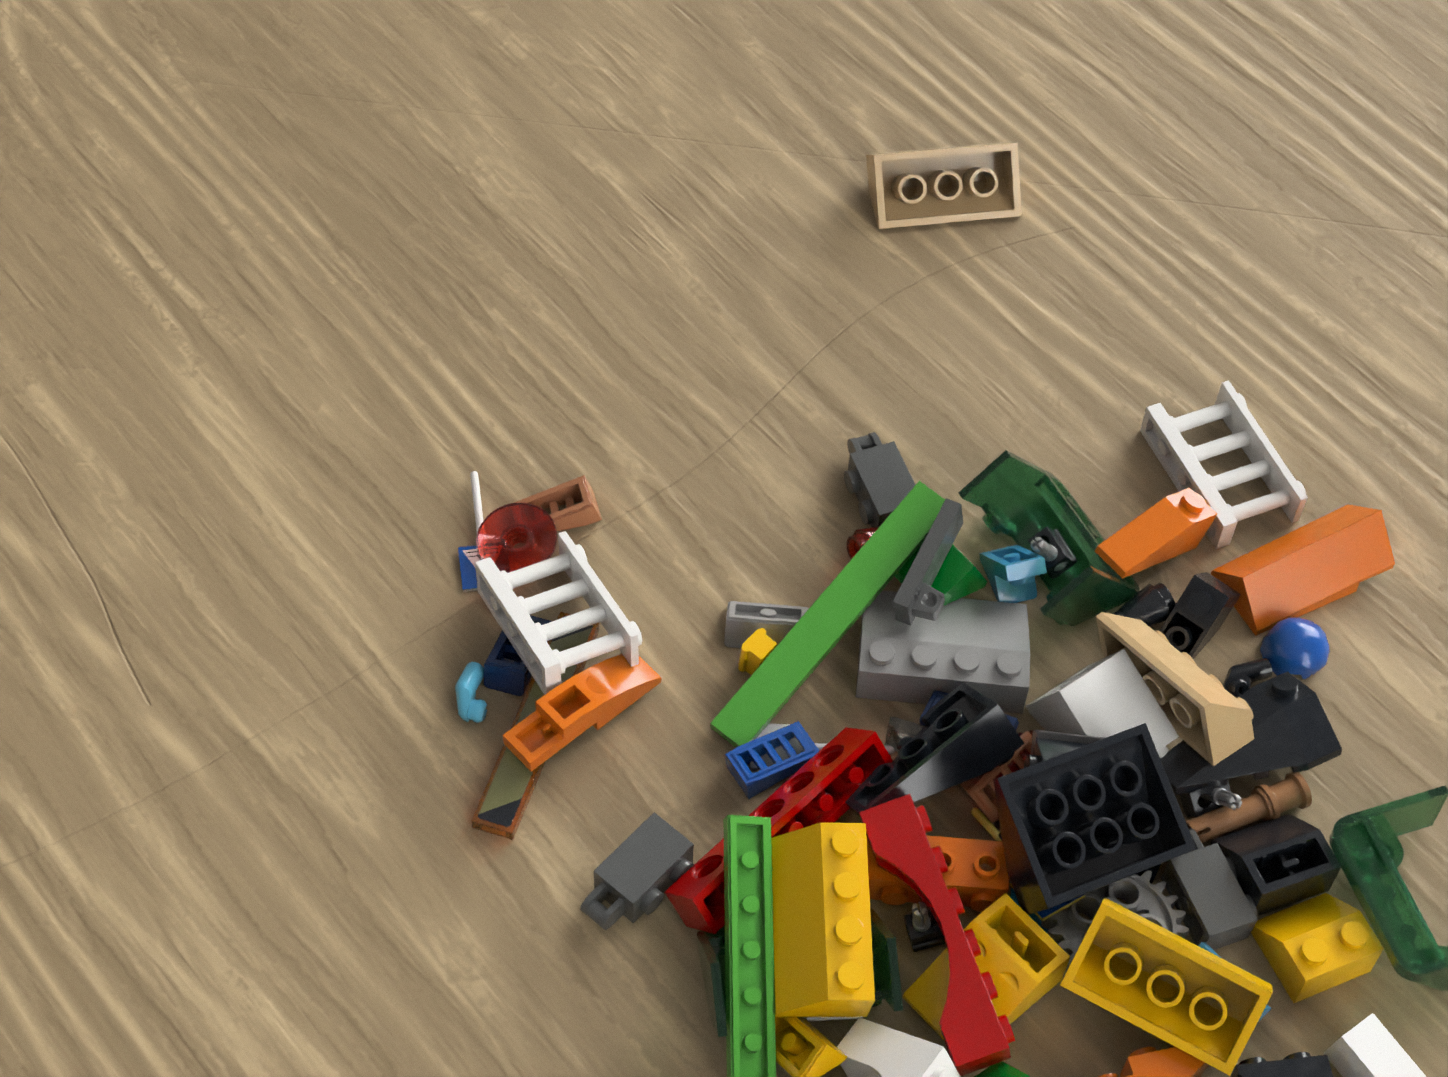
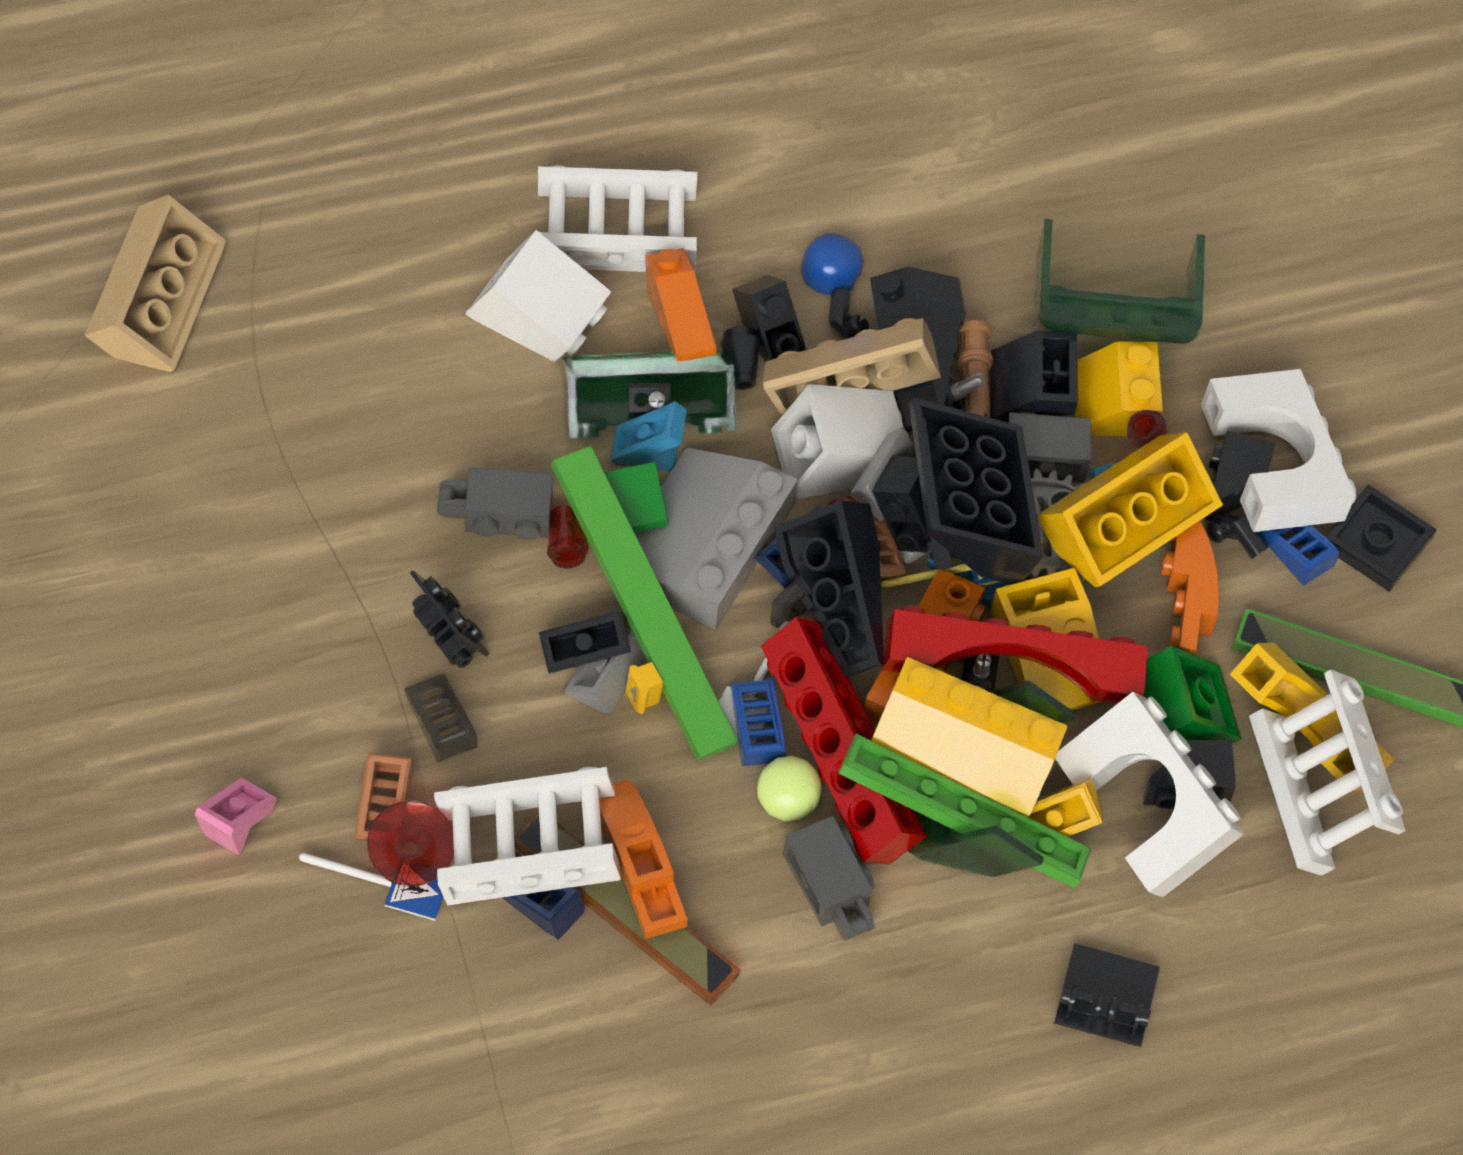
camera: 70 degrees left, 5 degrees up
(468, 706) = (562, 952): medium azure arm -> none
(481, 404) = (233, 812): none -> bright pink slope
(644, 543) = (452, 743): none -> clear smoke slope
(711, 802) = (789, 788): none -> yellowish green hair
(742, 482) = (441, 618): none -> black hinge
(776, 592) = (585, 641): none -> black slope
(915, 594) = (667, 522): dark grey hinge -> none
(1100, 434) = (541, 299): none -> white slope
(1284, 976) = (1145, 427): none -> clear red cone
(1308, 566) = (753, 208): orange slope -> none

